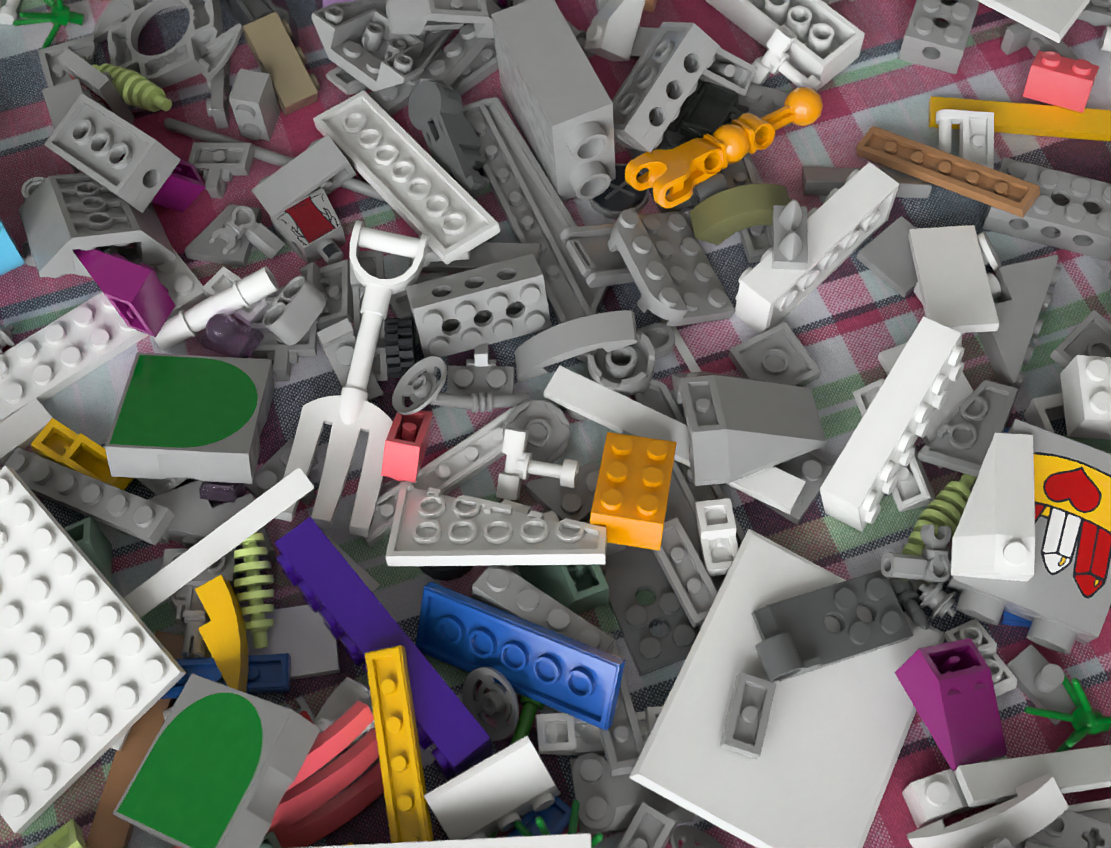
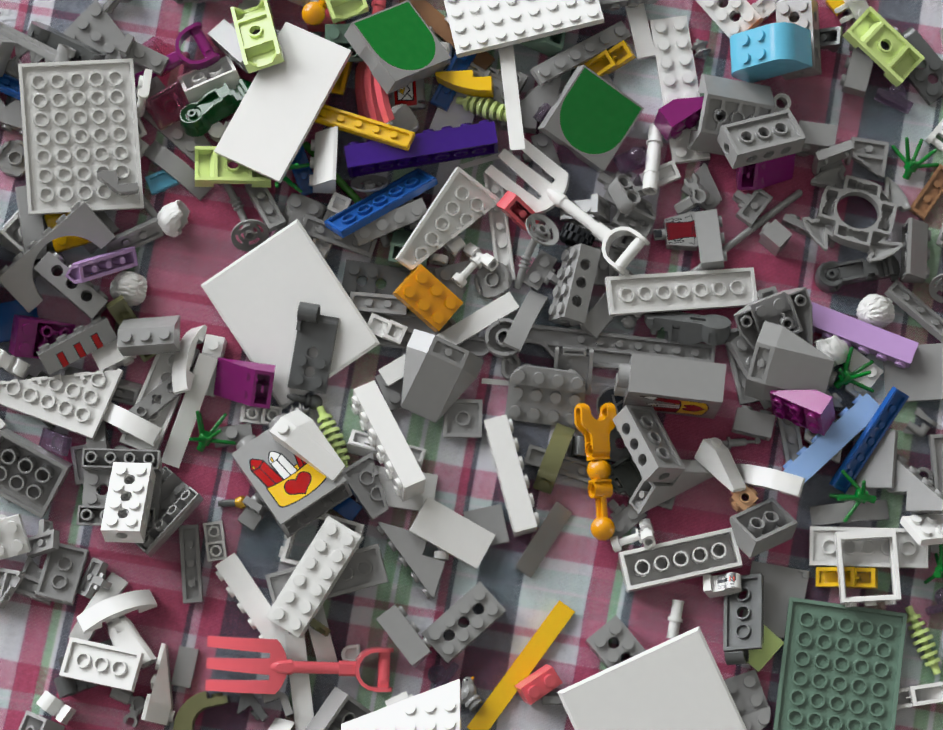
camera: 120 degrees right, 15 degrees up
(136, 89) = (823, 176): yellowish green piece -> none
(277, 56) = (796, 264): dark tan brick -> none
(748, 715) = (293, 284): light grey plate -> none
(789, 236) = (514, 452): light grey tile -> none
(930, 567) = (316, 406): light grey bar -> none
(948, 171) = (515, 573): medium nougat plate -> none
(975, 136) = (528, 610): white plate -> none
(988, 252) = (458, 569): white piece -> none

